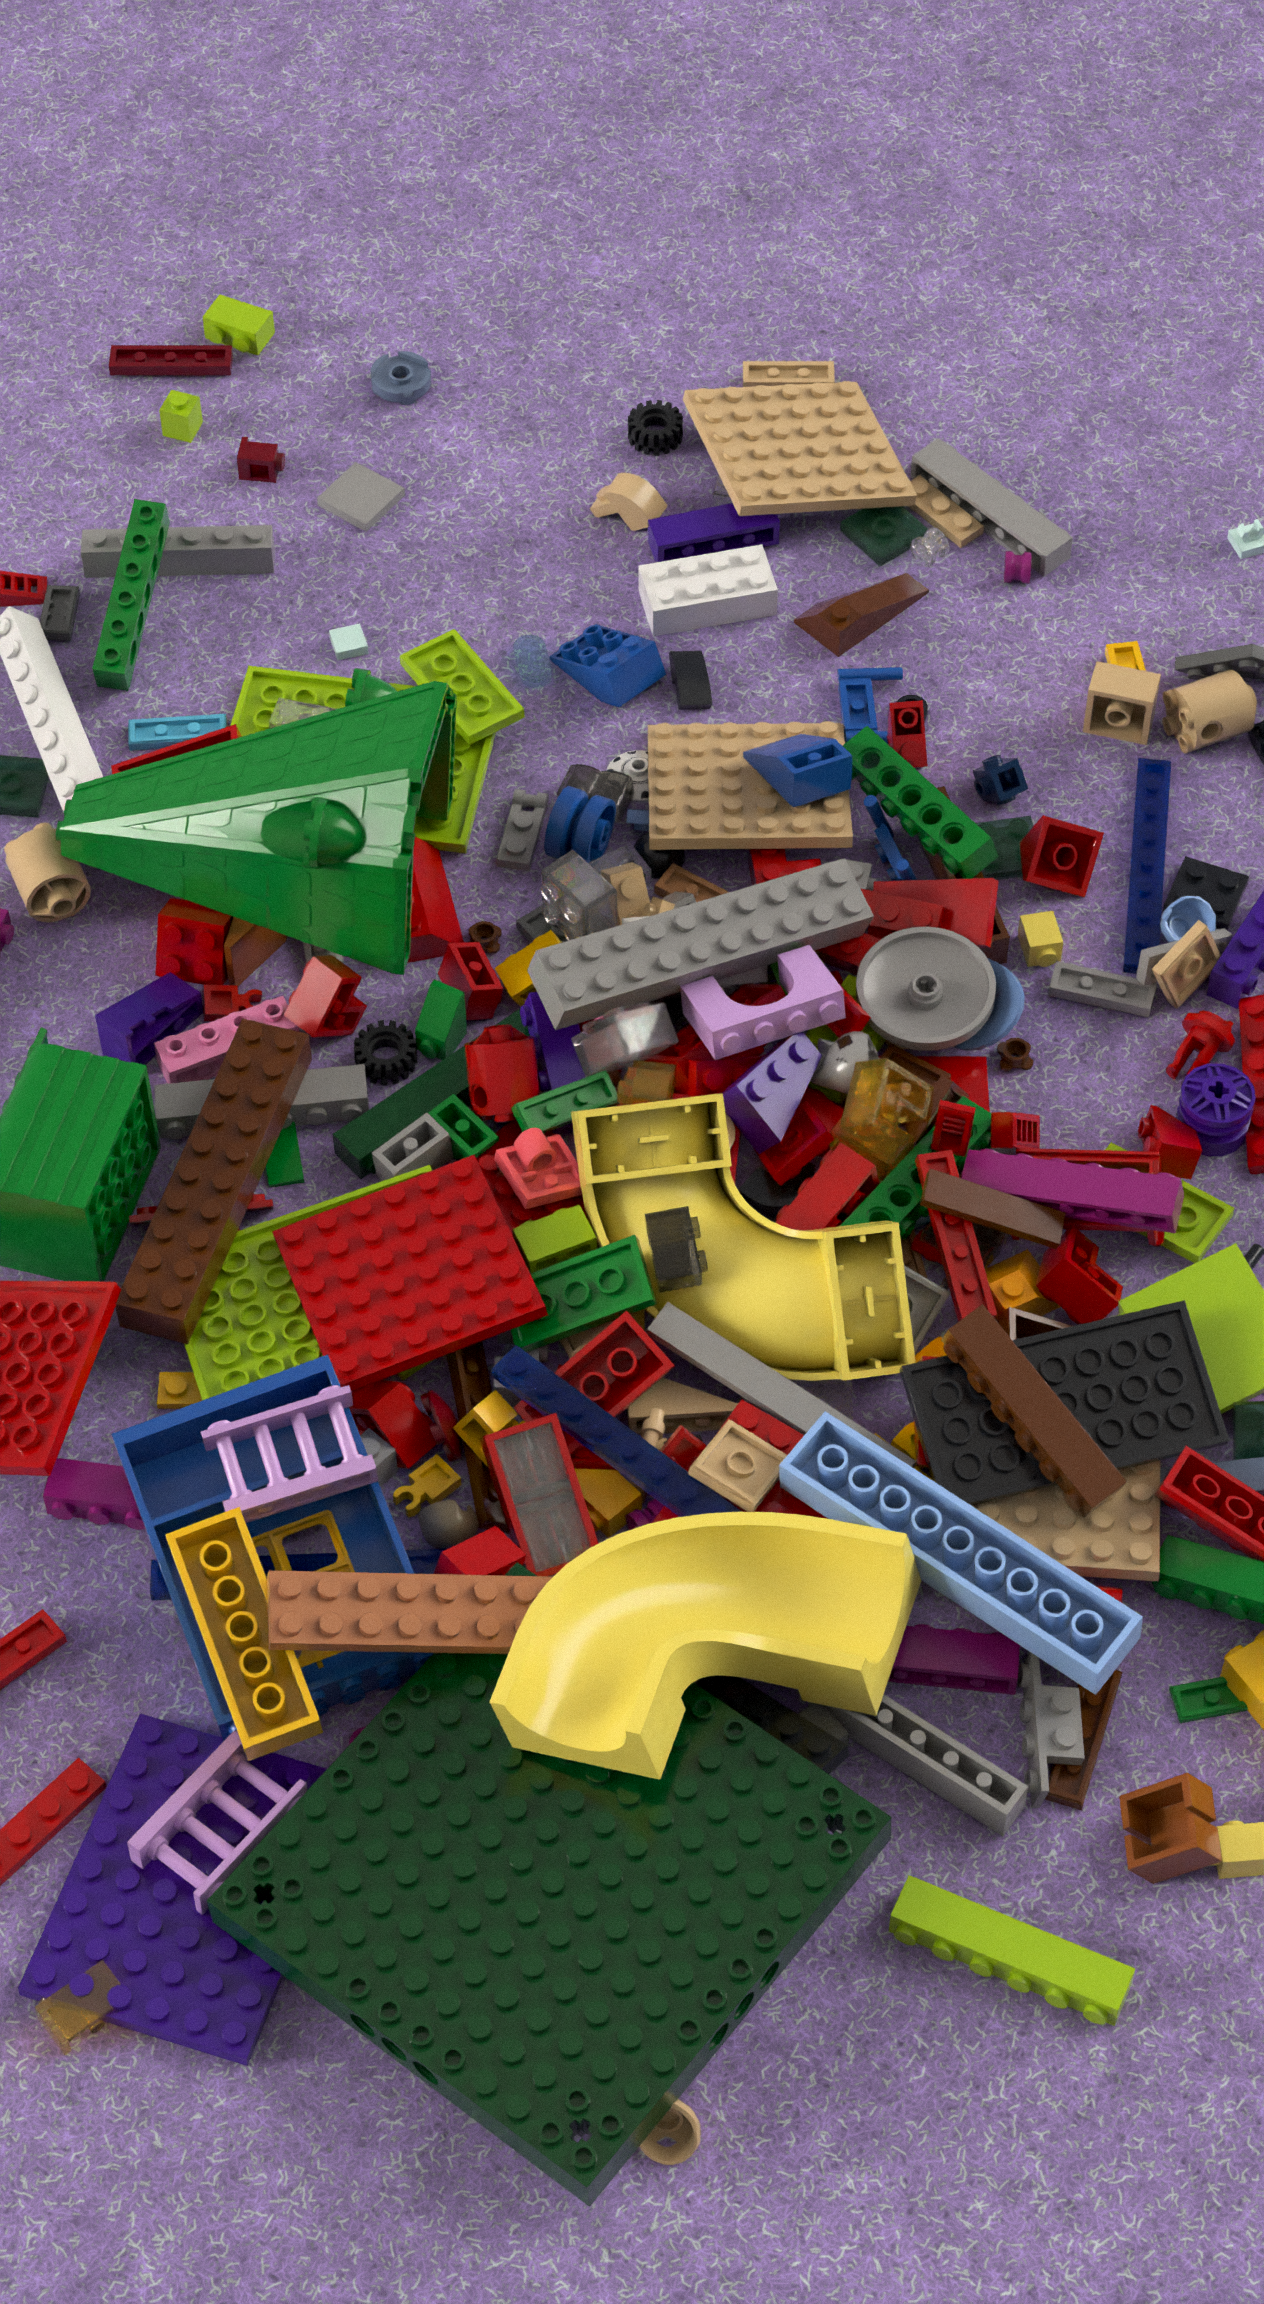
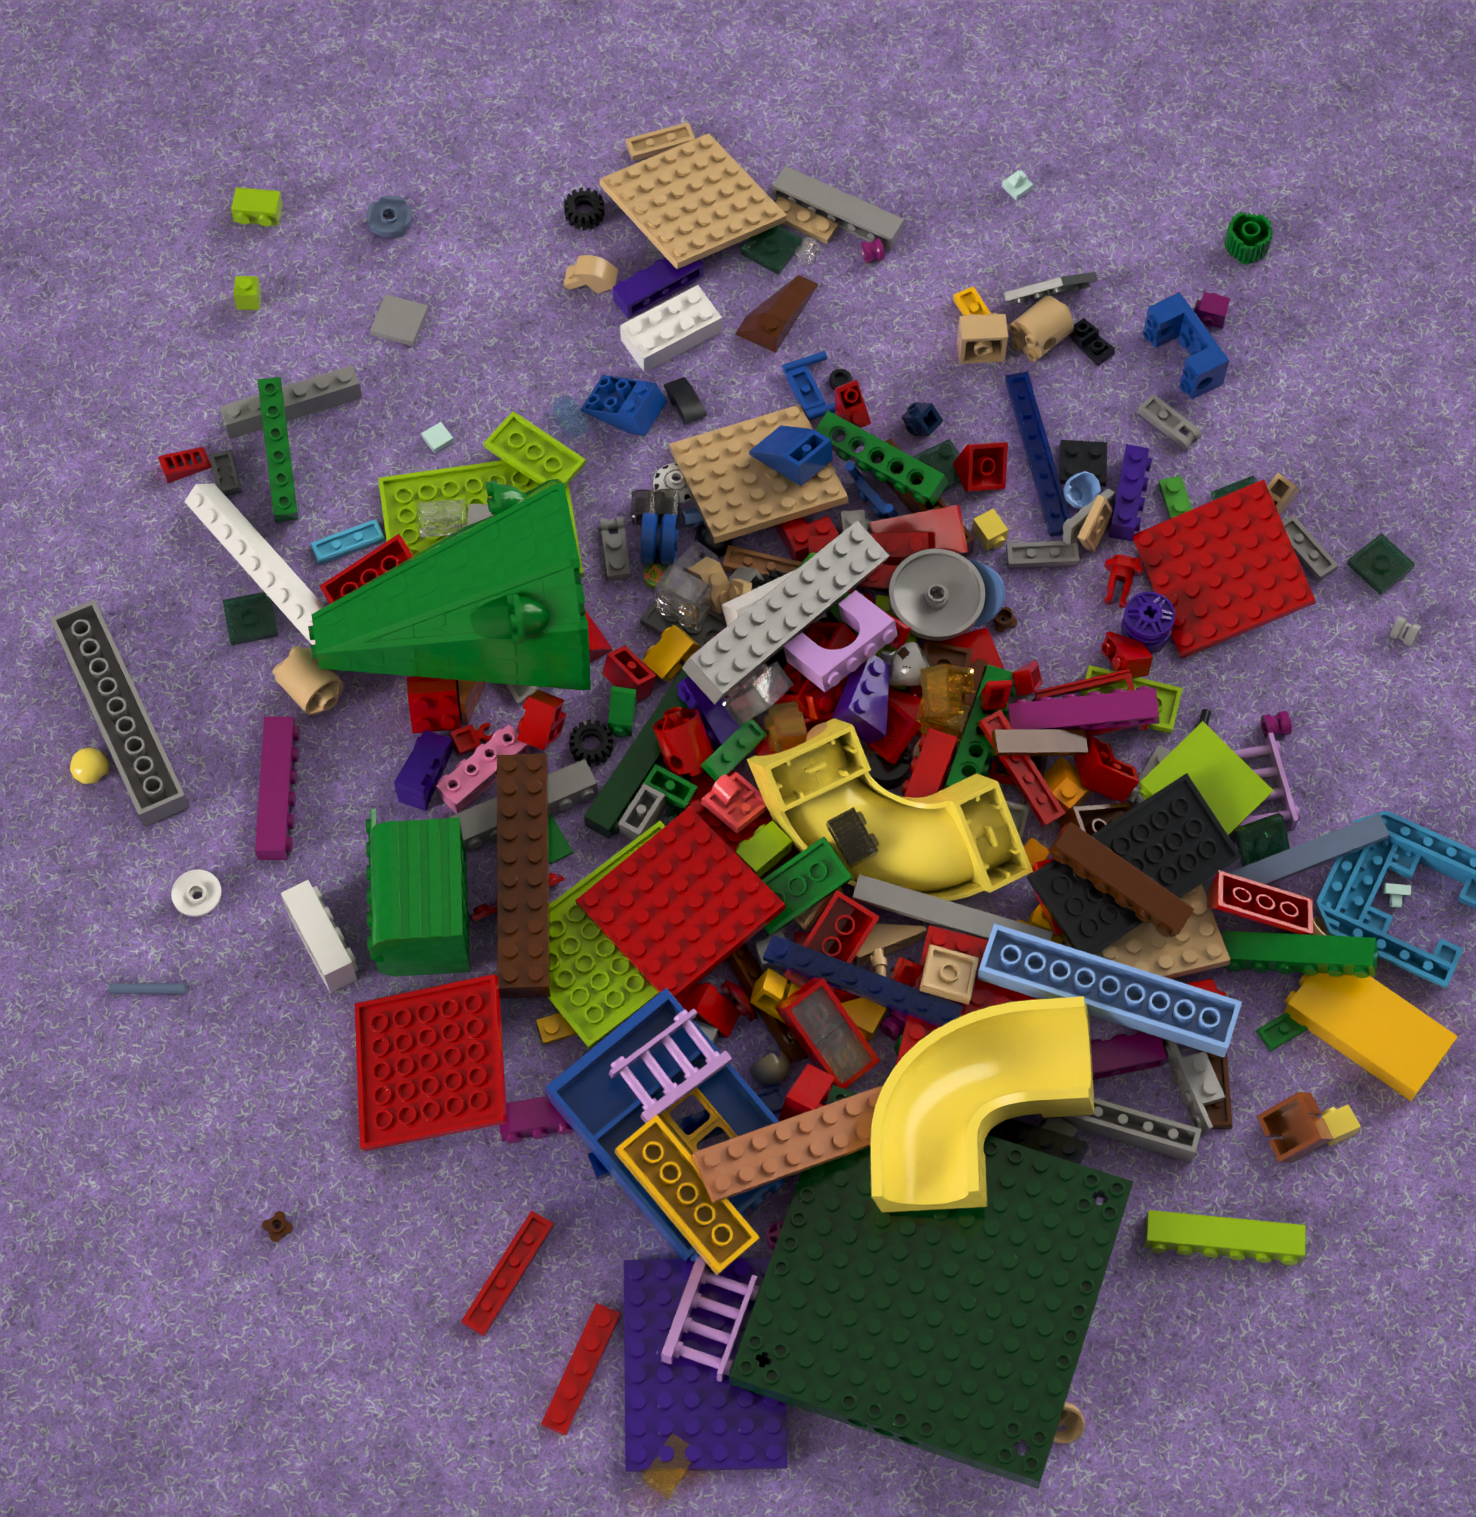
camera: 20 degrees left, 10 degrees up
(170, 360) = (219, 248): dark red plate -> none
(259, 461) = (318, 313): dark red brick -> none
(428, 1482) = (745, 1040): yellow plate -> none
(486, 930) = (622, 631): reddish brown plate -> none

